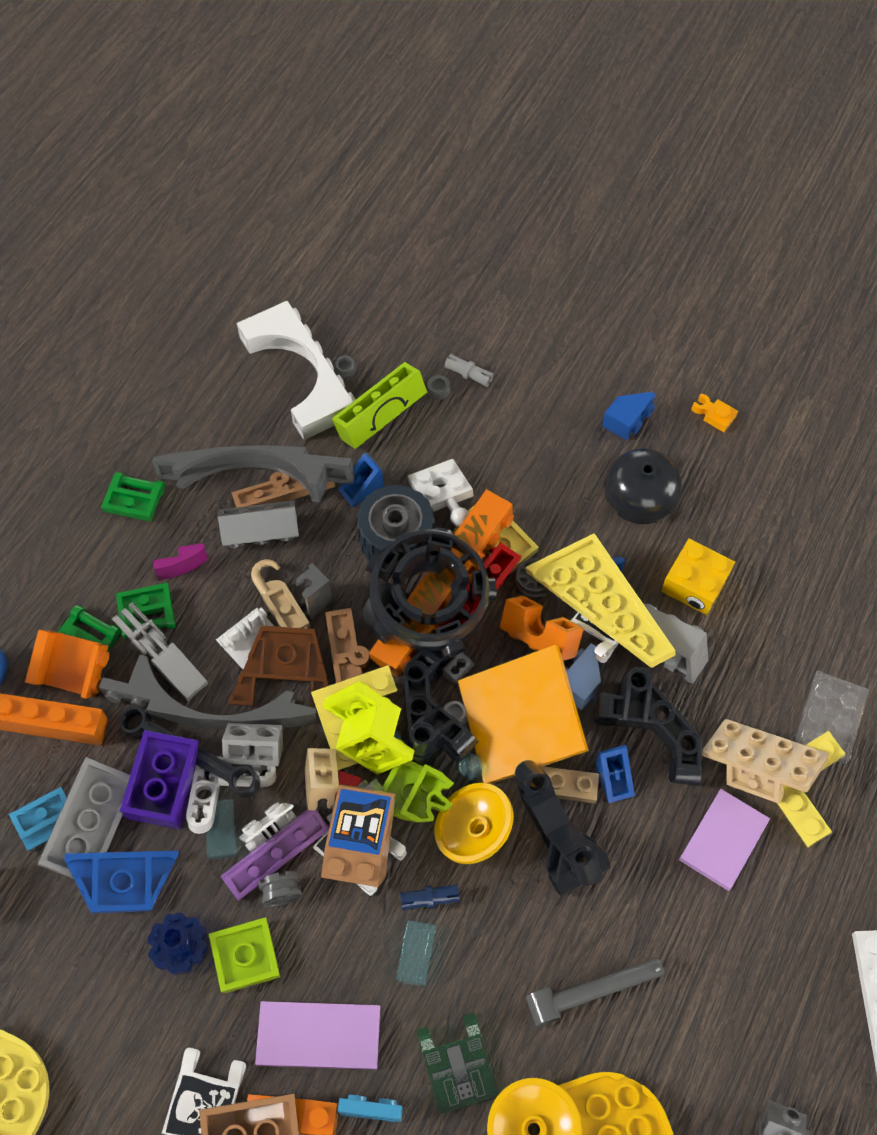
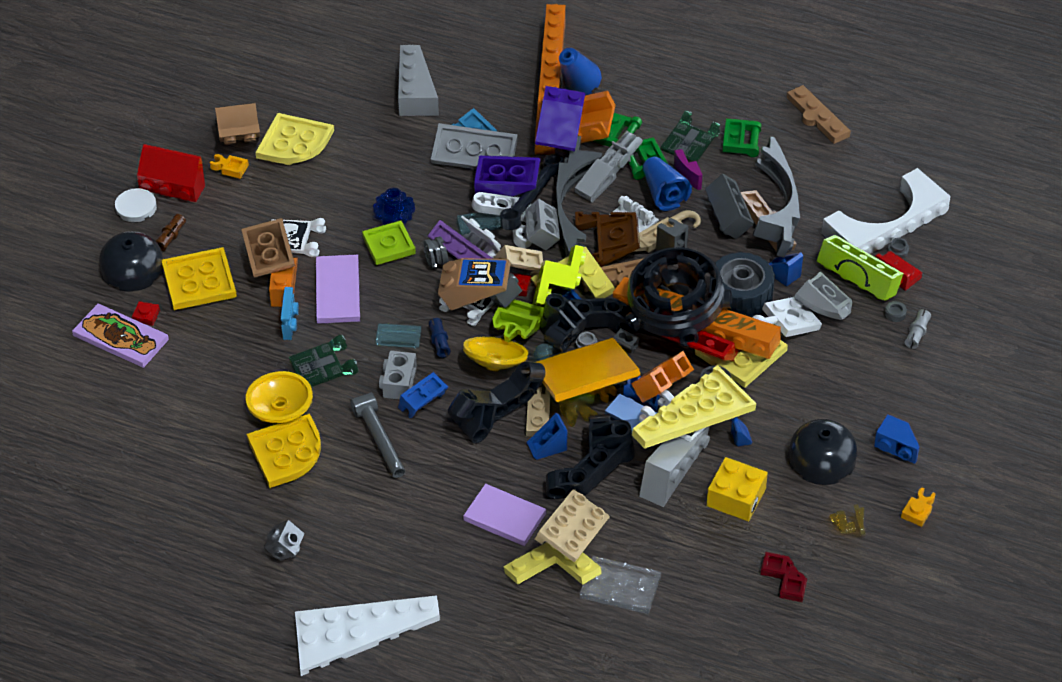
camera: 85 degrees right, 15 degrees down
(81, 694) = (560, 118): none -> dark purple slope
(109, 412) = (816, 113): none -> medium nougat hinge
(120, 879) = (434, 172): blue wing -> none
(123, 557) = (689, 138): none -> clear green flag
(204, 589) = (666, 184): none -> blue cone
(374, 372) = (911, 274): none -> red bracket
(418, 448) = (824, 297): none -> light grey slope
(497, 947) = (398, 375): none -> light grey brick
(535, 925) = (421, 394): none -> blue hinge
(743, 481) = (844, 527): none -> clear yellow piece
(814, 542) = (783, 567): none -> dark red tile

